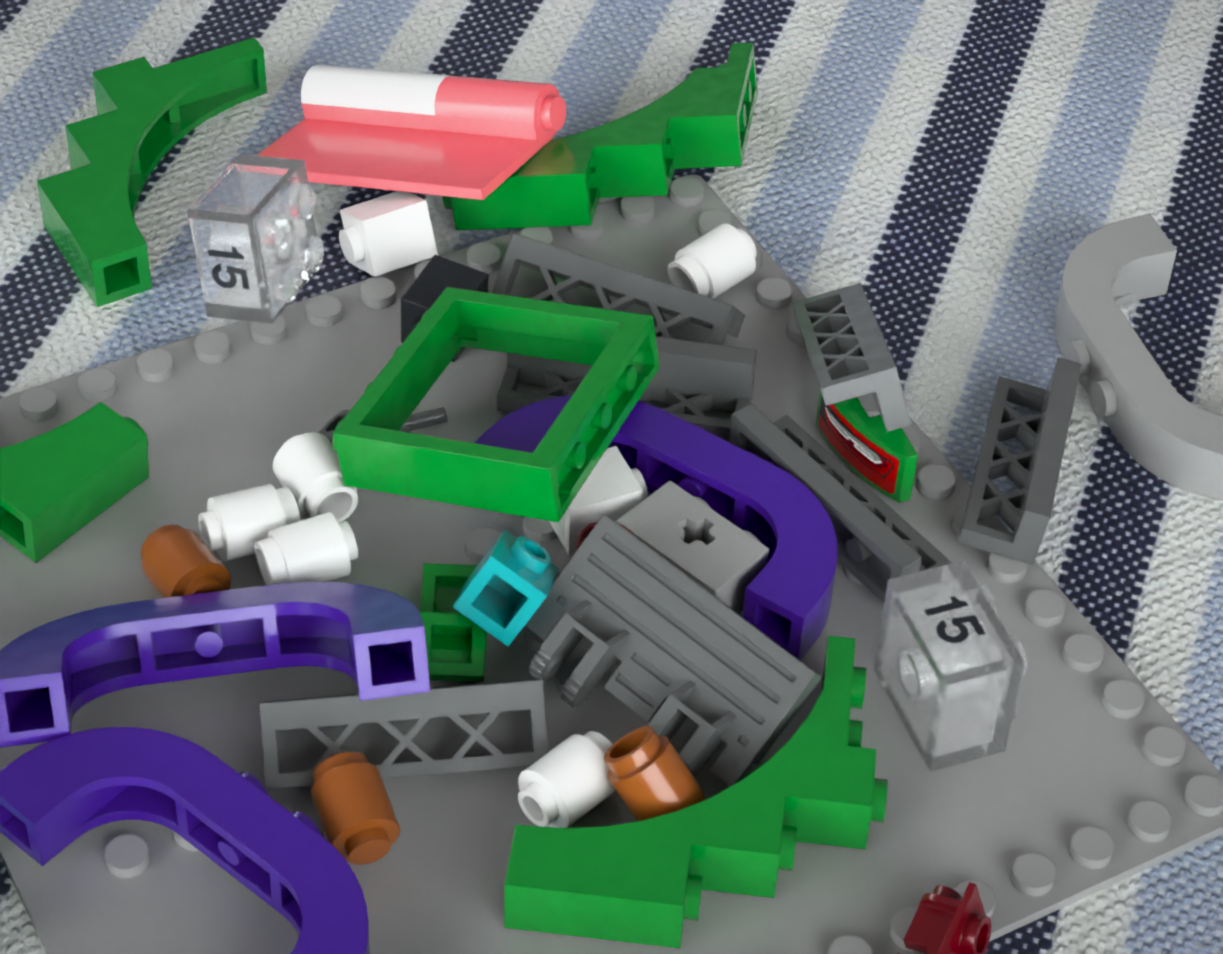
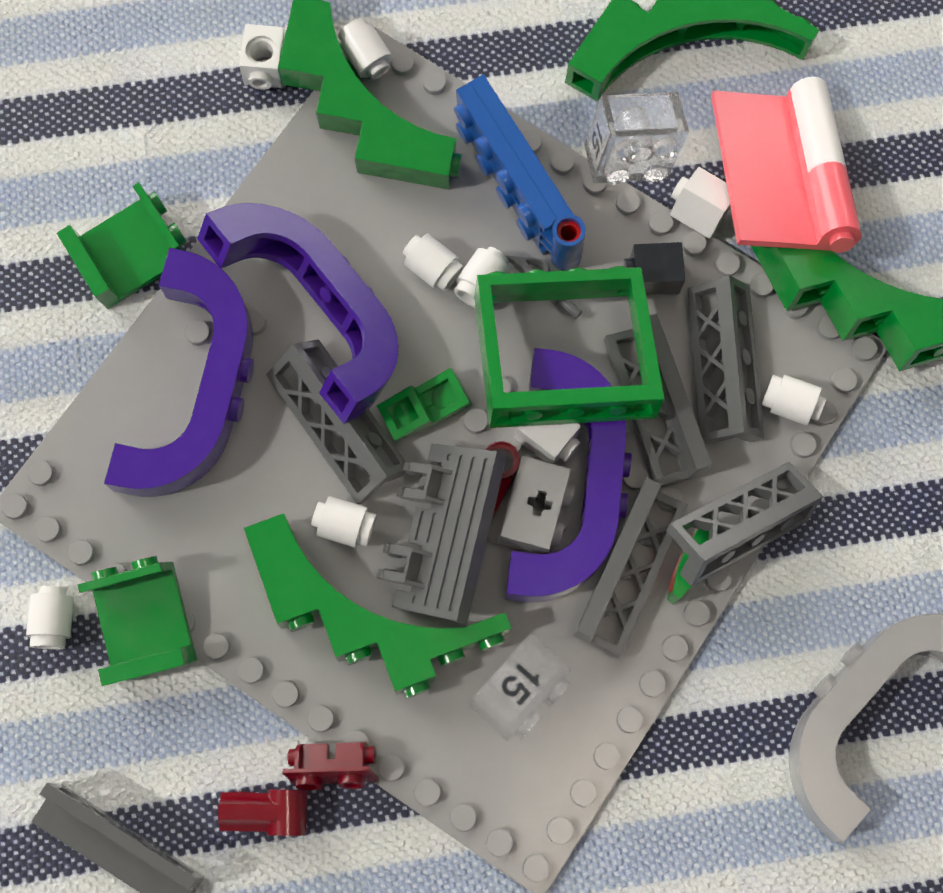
camera: 60 degrees right, 30 degrees up
(182, 563) = (379, 251): dark orange brick -> none
(212, 358) = (519, 174): none -> blue hinge
(307, 551) = (424, 303): white brick -> none
(354, 807) = (266, 426): dark orange brick -> none
(507, 586) = (442, 422): teal brick -> none
(650, 775) = (357, 567): dark orange brick -> none
(1045, 441) = (737, 673): dark grey fence -> none

